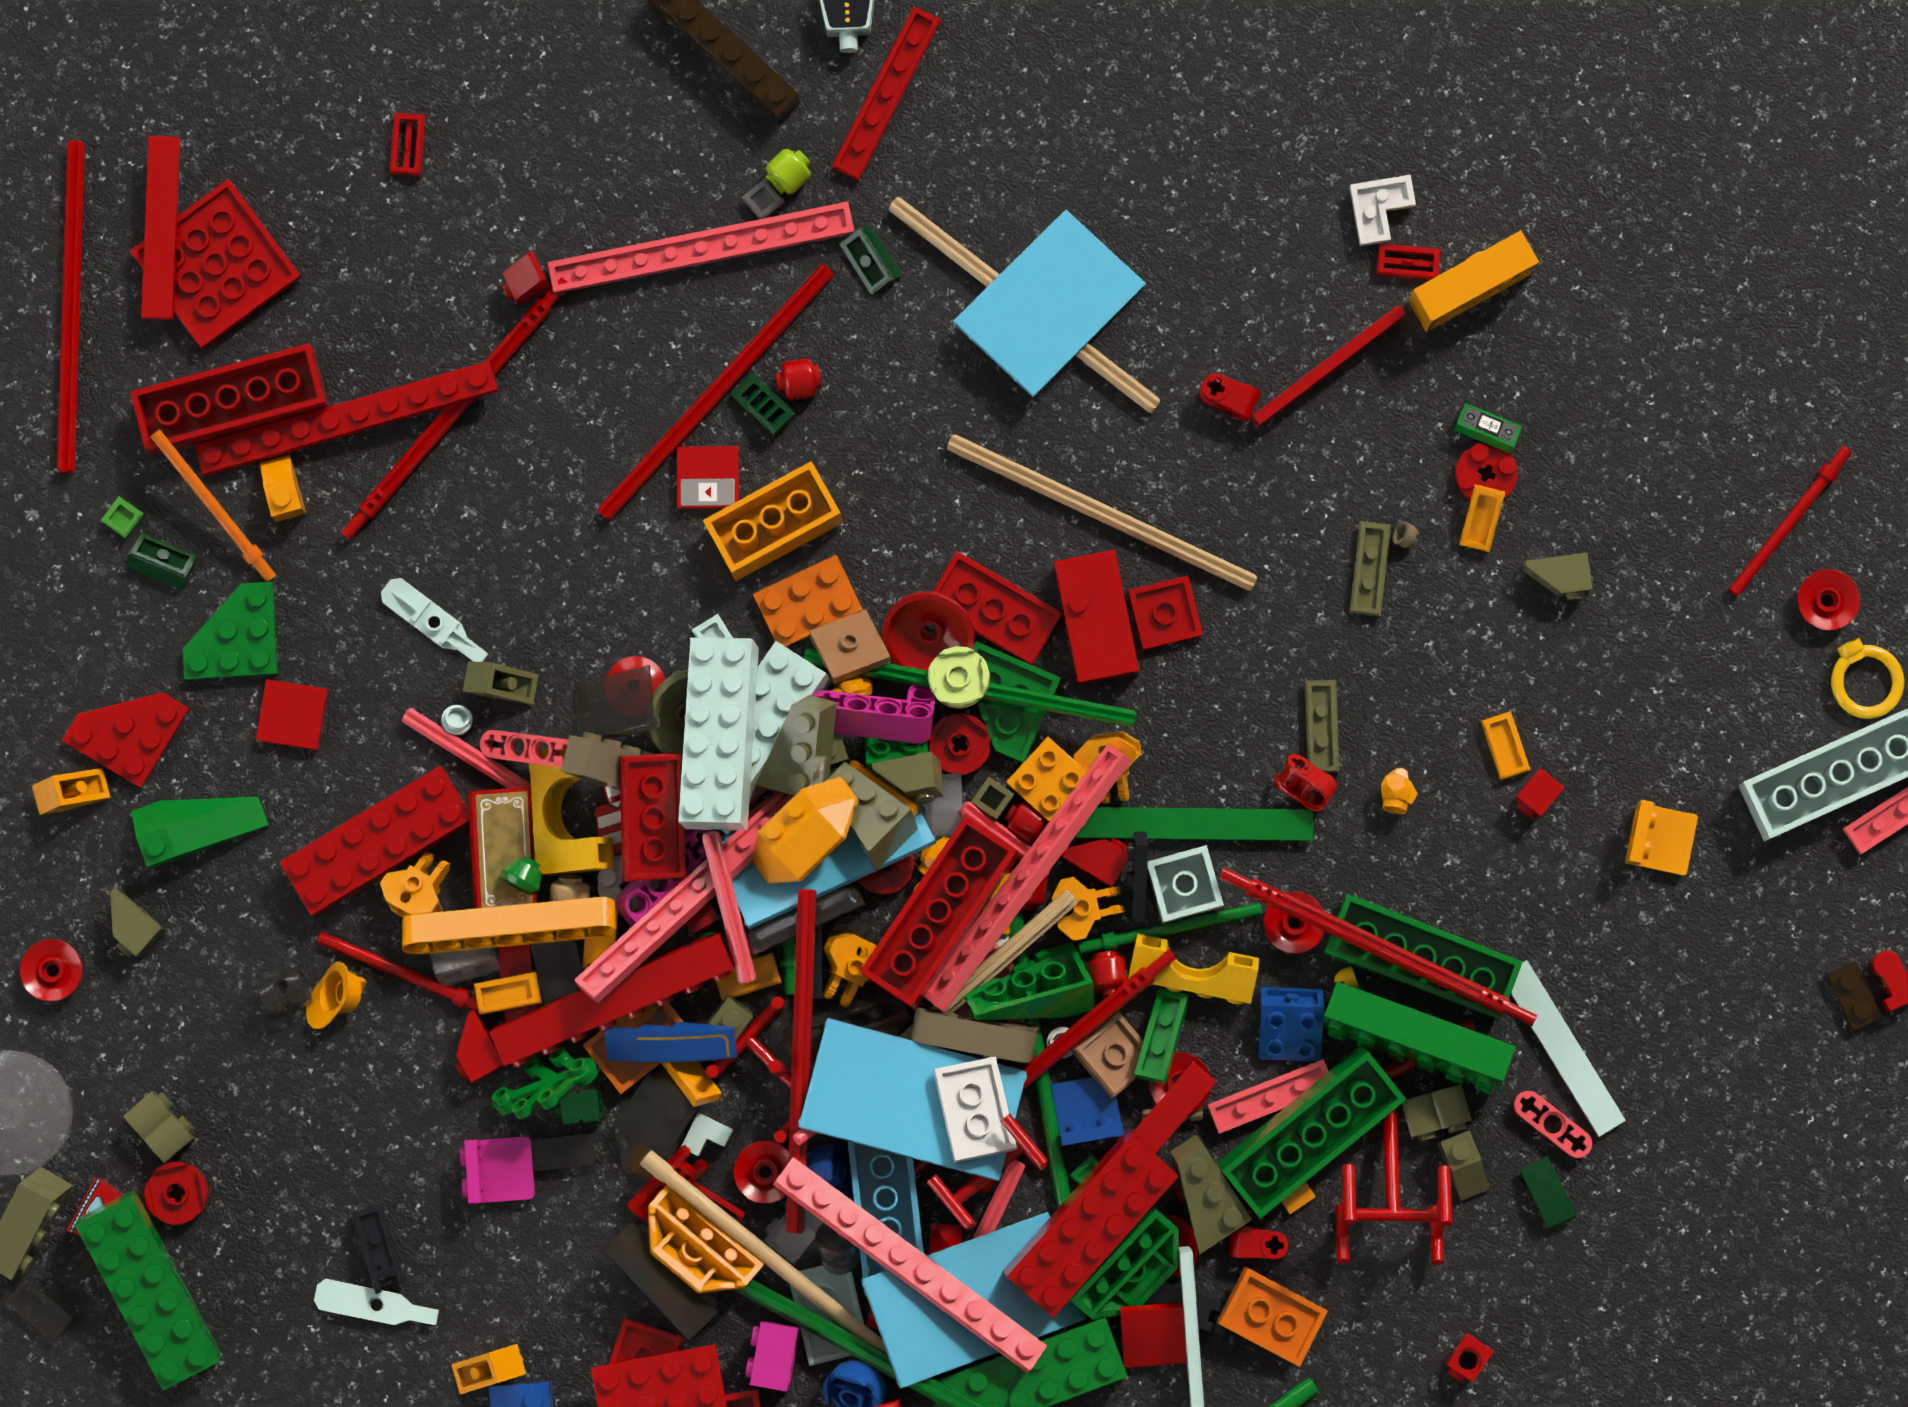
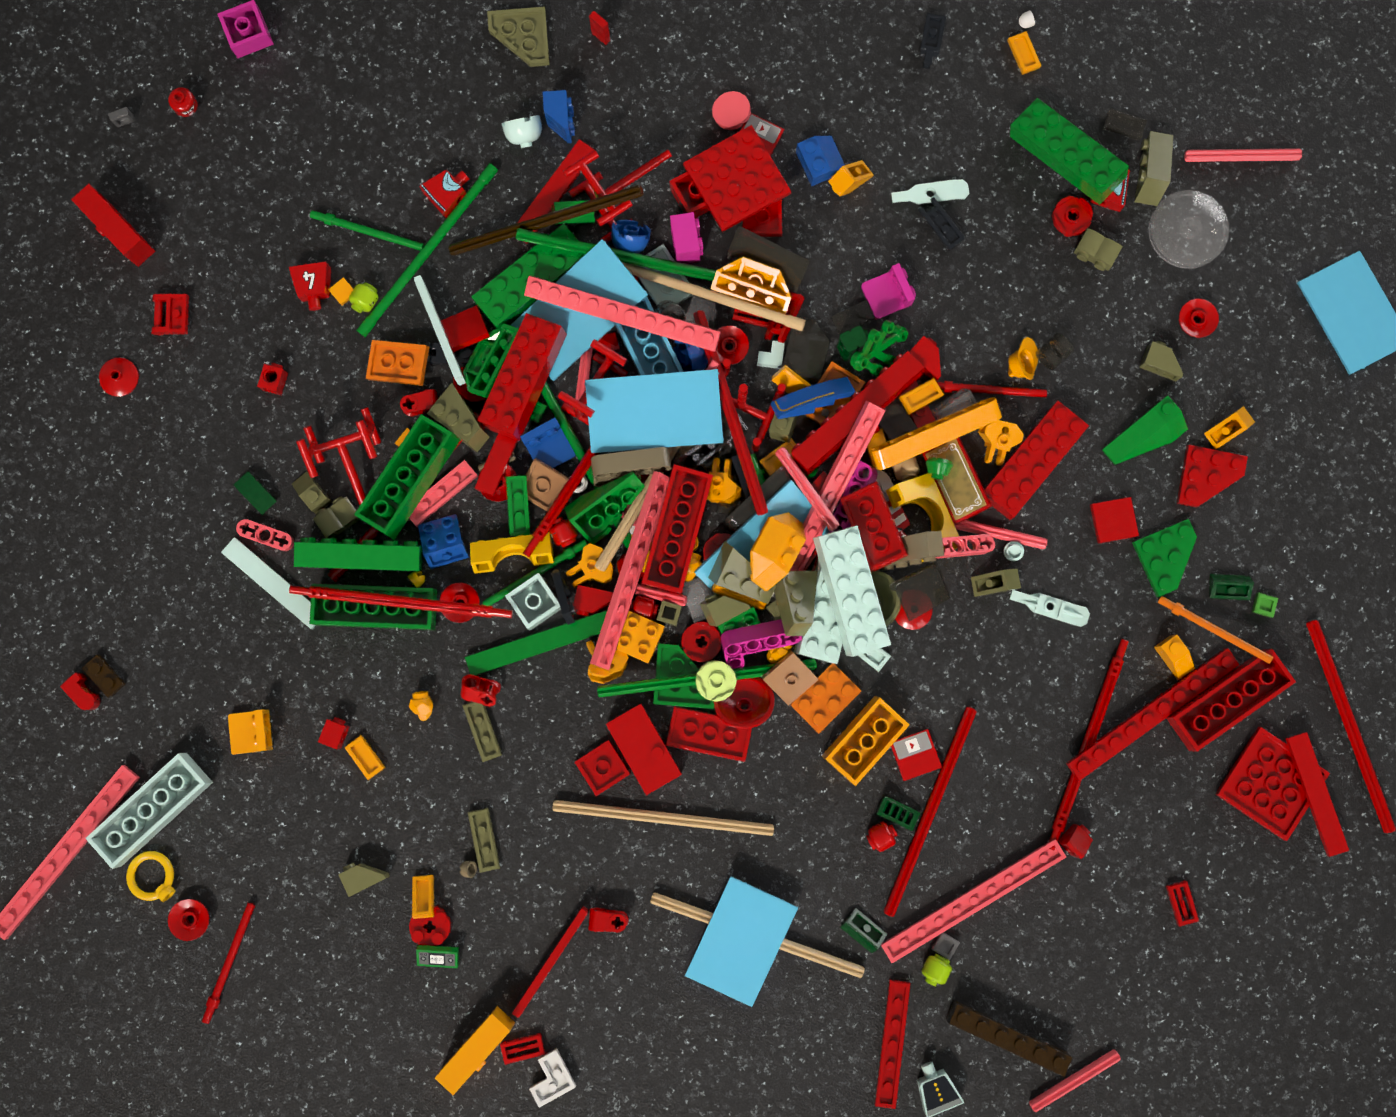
camera: 160 degrees right, 0 degrees up
(973, 1108) = (614, 416): white plate -> none

